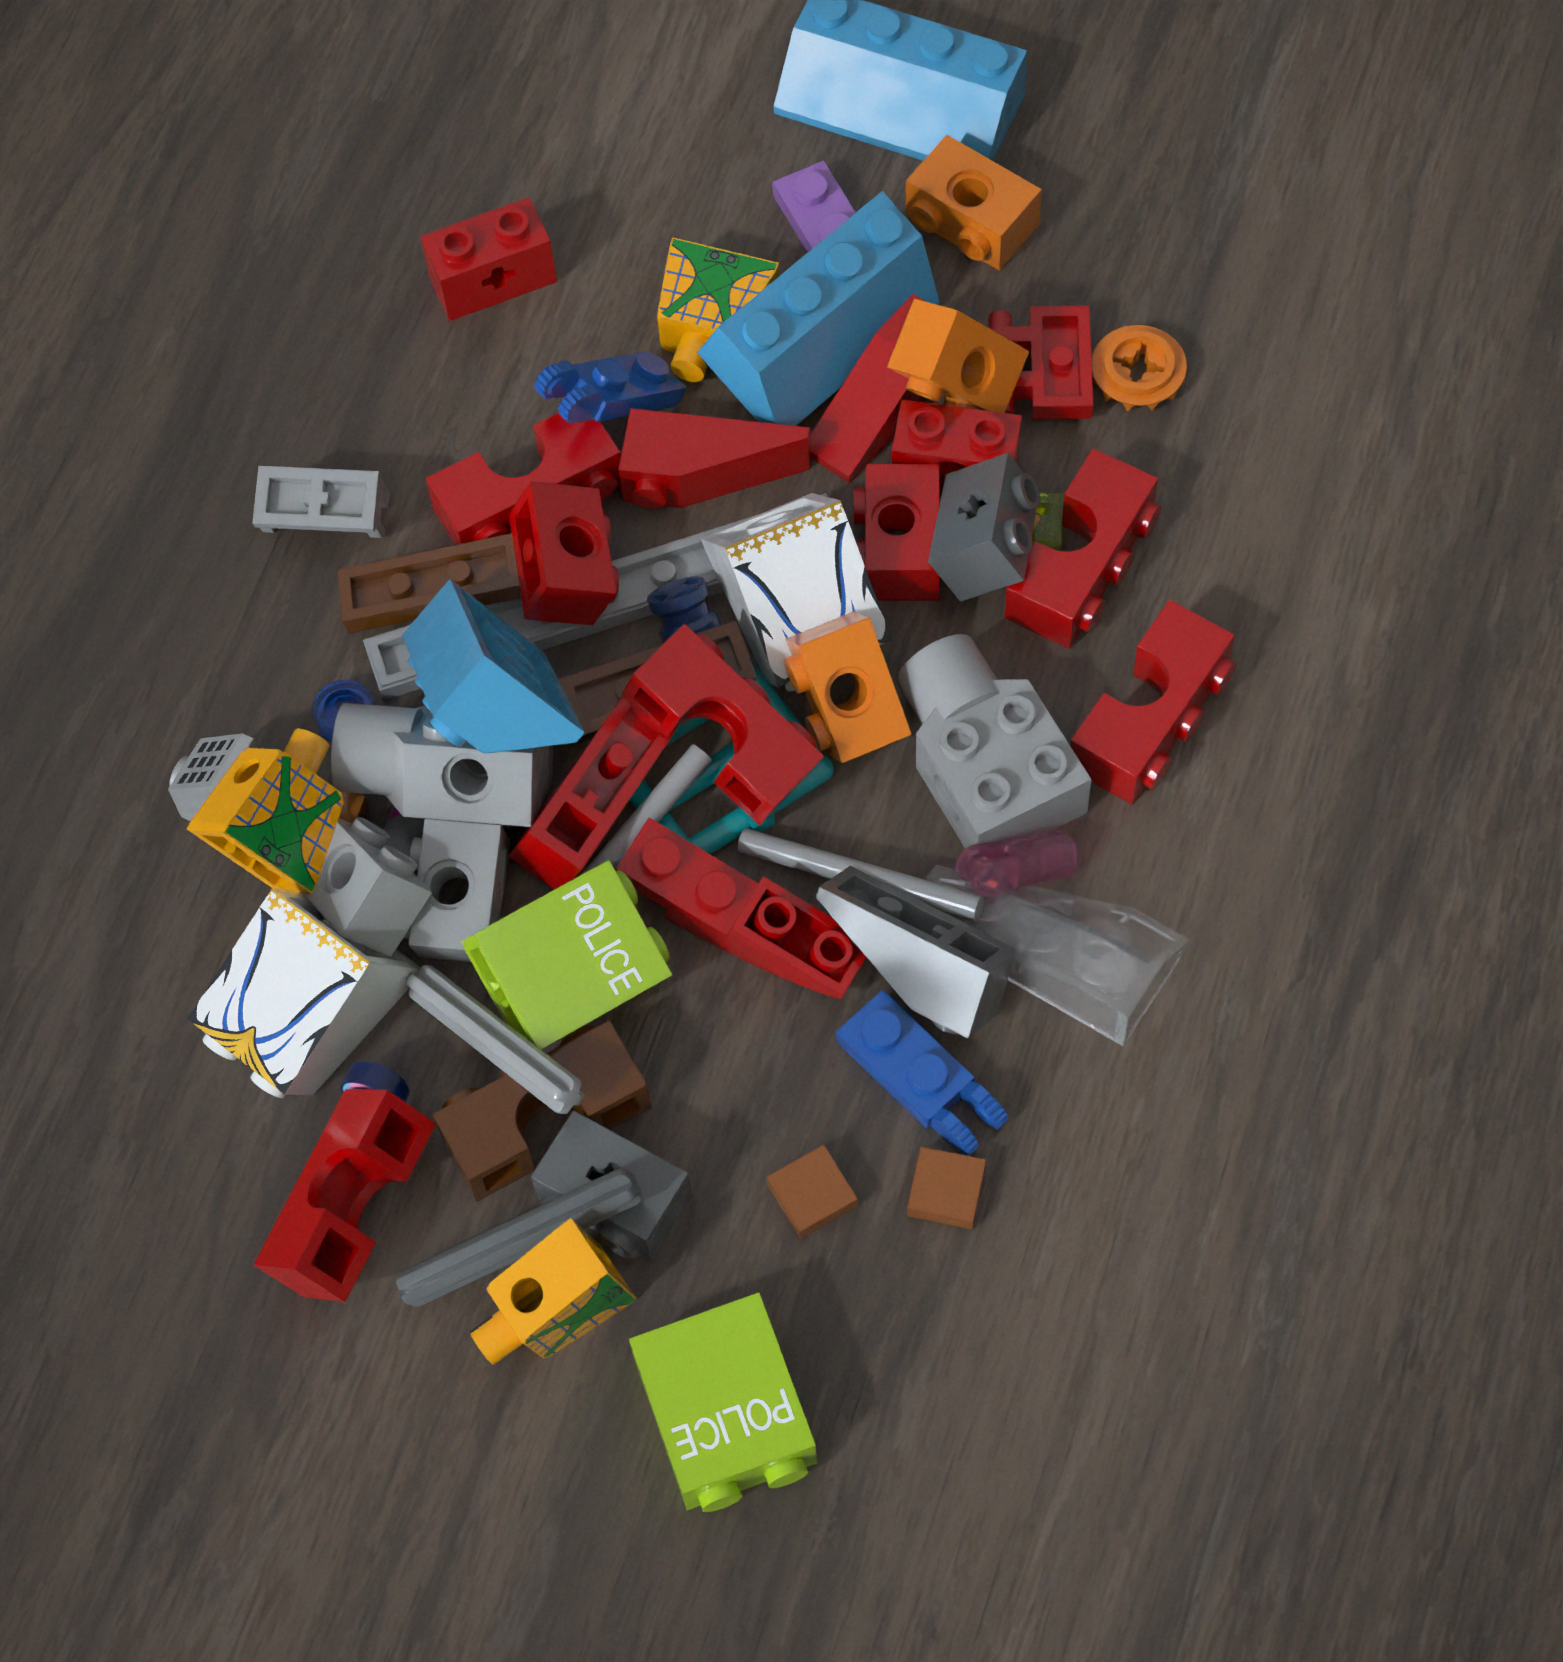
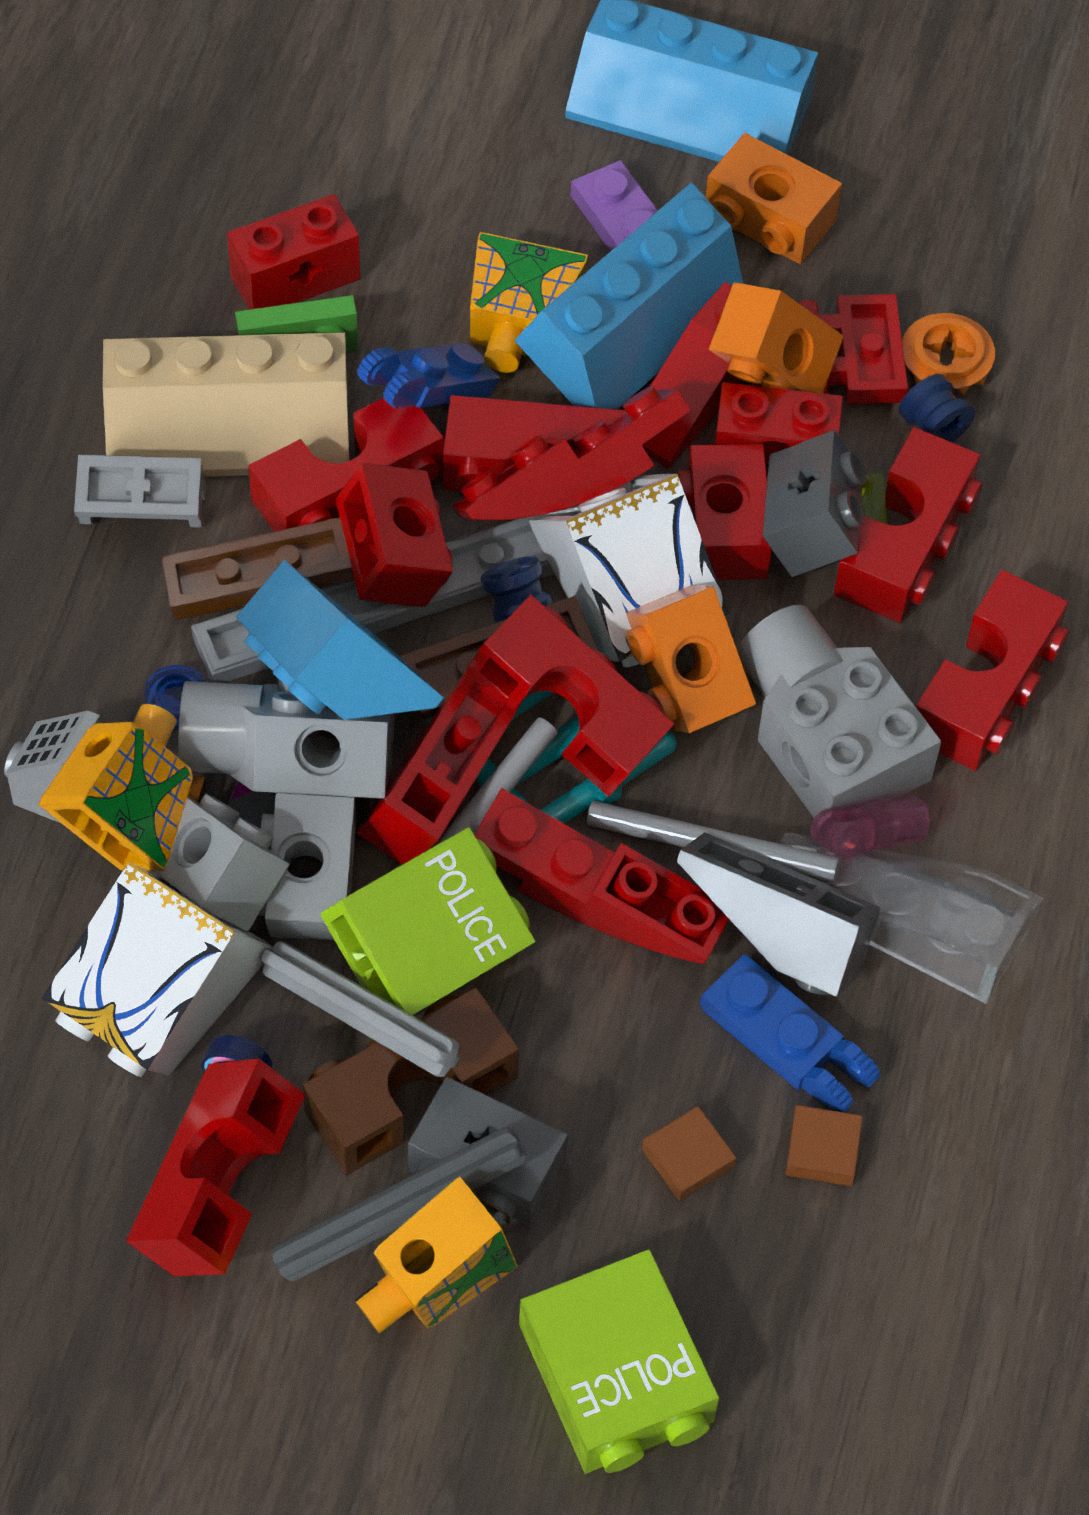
camera: 10 degrees left, 5 degrees down
(412, 408) = (226, 398): none -> tan slope
(486, 337) = (316, 316): none -> bright green plate
(725, 498) = (555, 477): none -> red slope
(1121, 428) = (936, 409): none -> dark blue wheel

